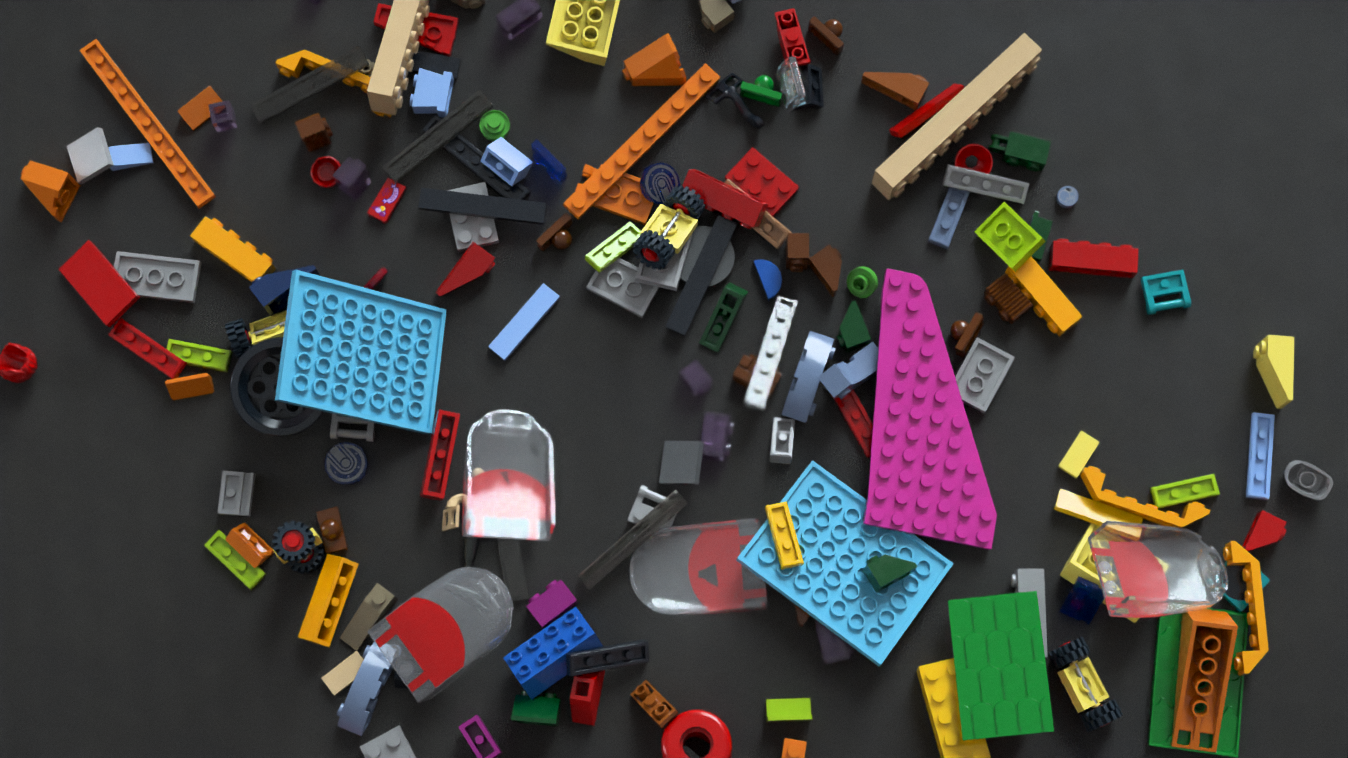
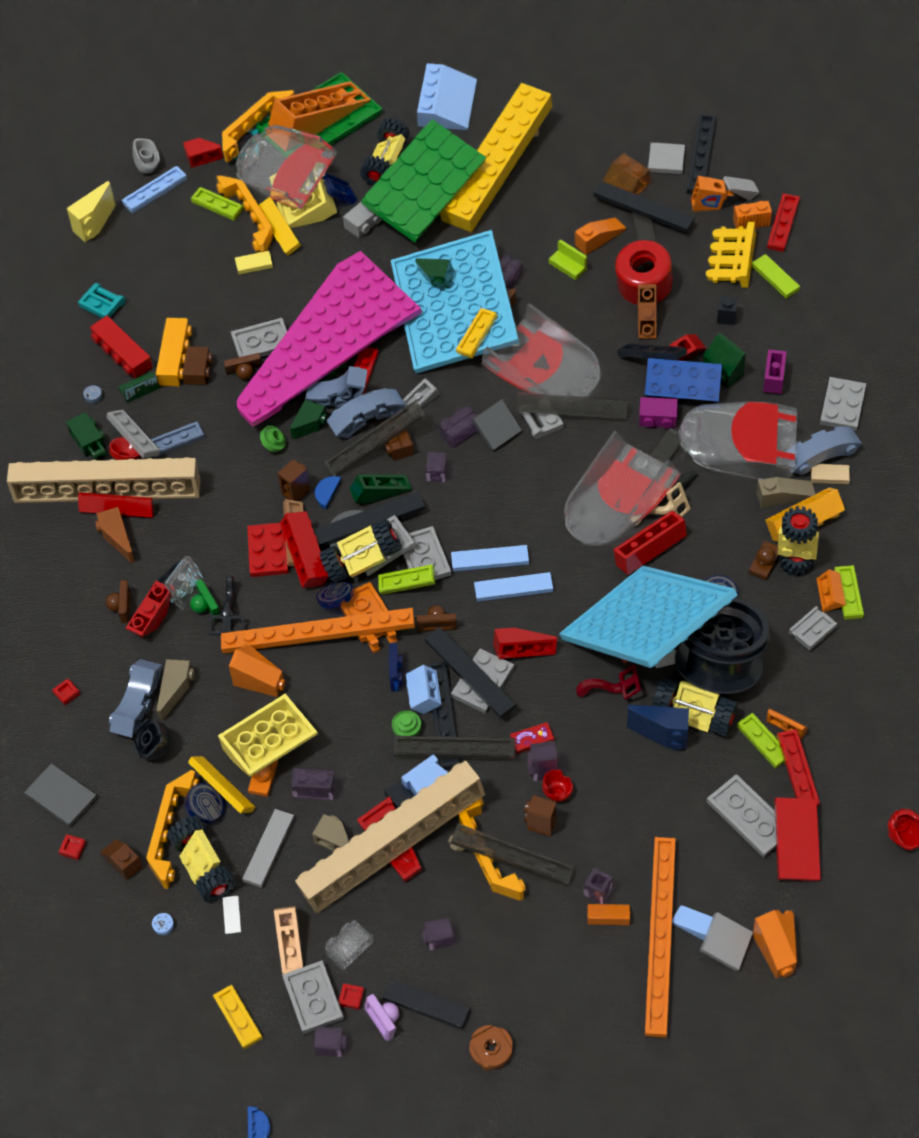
camera: 135 degrees left, 20 degrees down
(231, 250) = (676, 786): light orange brick -> none
(569, 332) = (490, 558): none -> light blue tile
(827, 267) = (281, 459): reddish brown slope -> none
(1009, 236) = (156, 388): lime plate -> none

